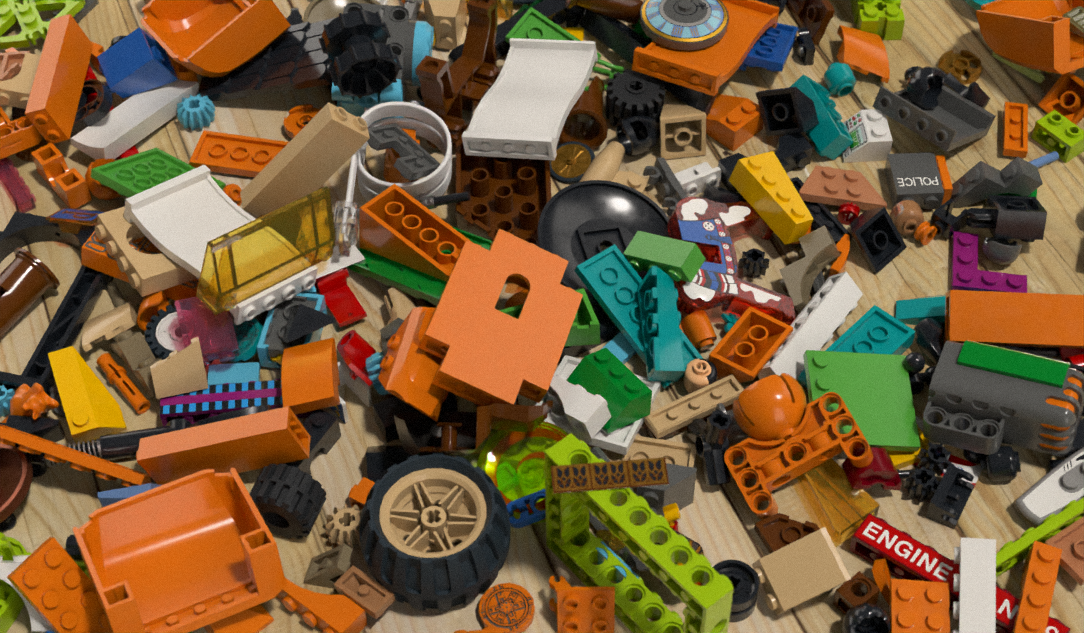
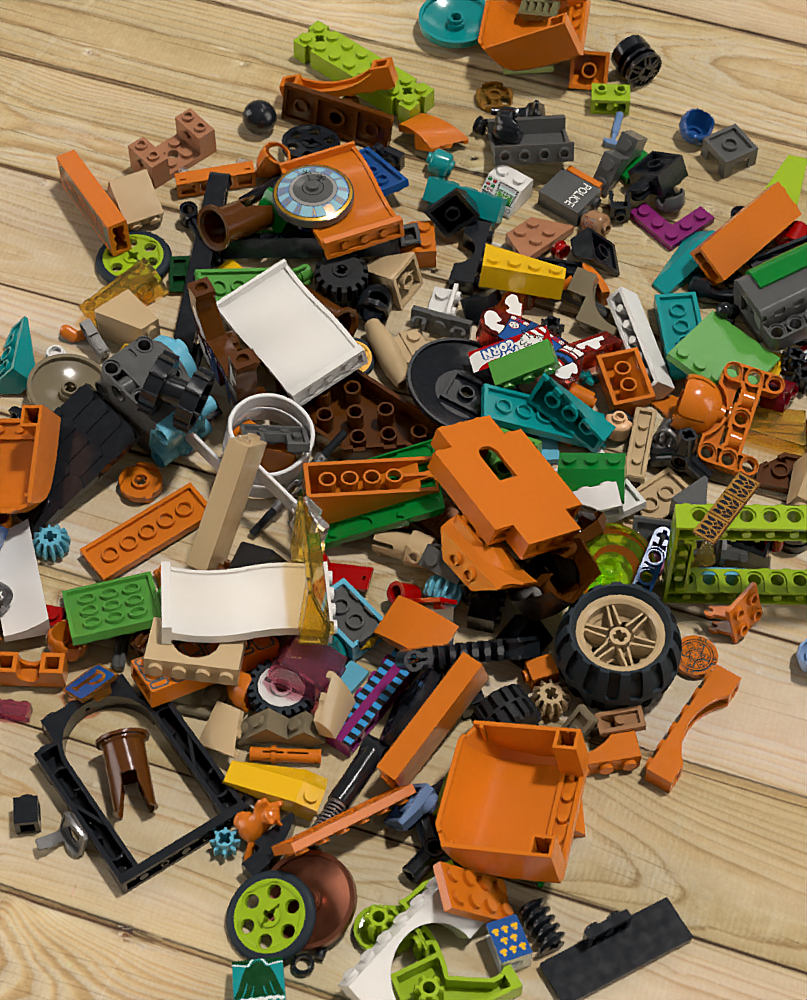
camera: 50 degrees left, 5 degrees up
(272, 391) = (481, 651): none -> black piece
(303, 321) = (366, 605): black slope -> none
(704, 242) = (480, 357): none -> sticker
(725, 102) = (411, 236): none -> dark grey slope
(925, 233) = (616, 225): orange bush -> none
(1015, 129) = (580, 115): orange plate -> none

